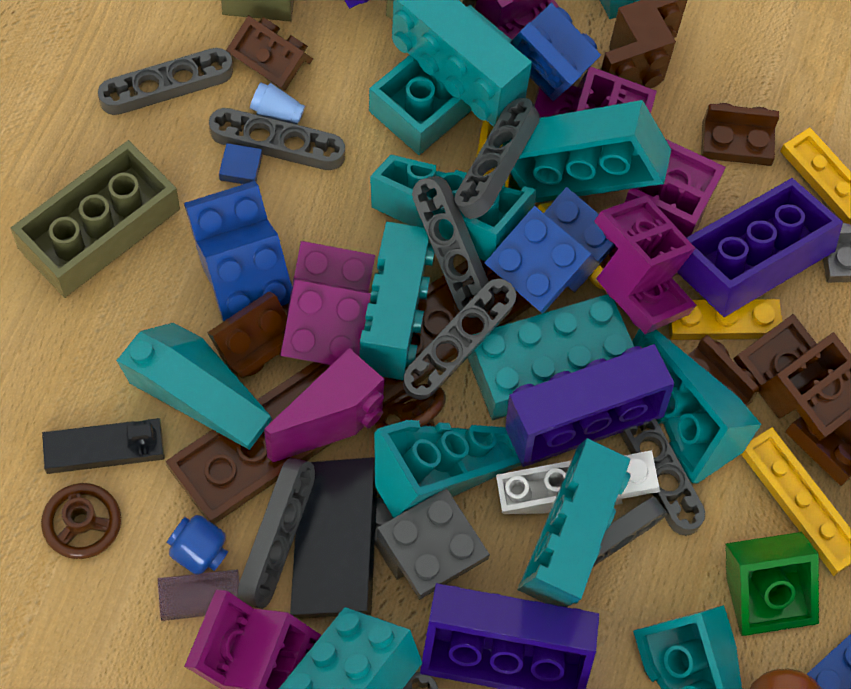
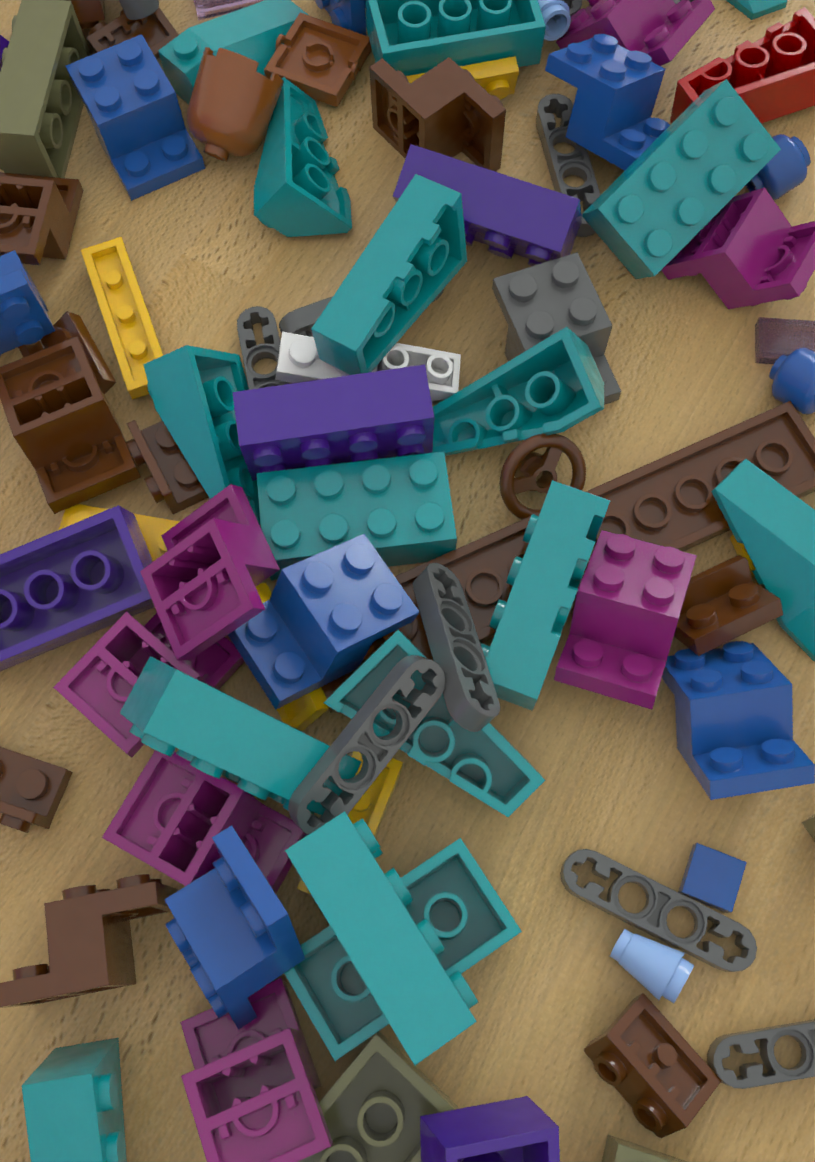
camera: 160 degrees left, 5 degrees up
(276, 533) = (715, 376): dark grey beam -> none
(329, 409) = (651, 459): magenta slope -> none
(336, 541) = (650, 364): black tile -> none
(462, 341) = (469, 514): dark grey beam -> none
(773, 583) = (190, 245): green slope -> none

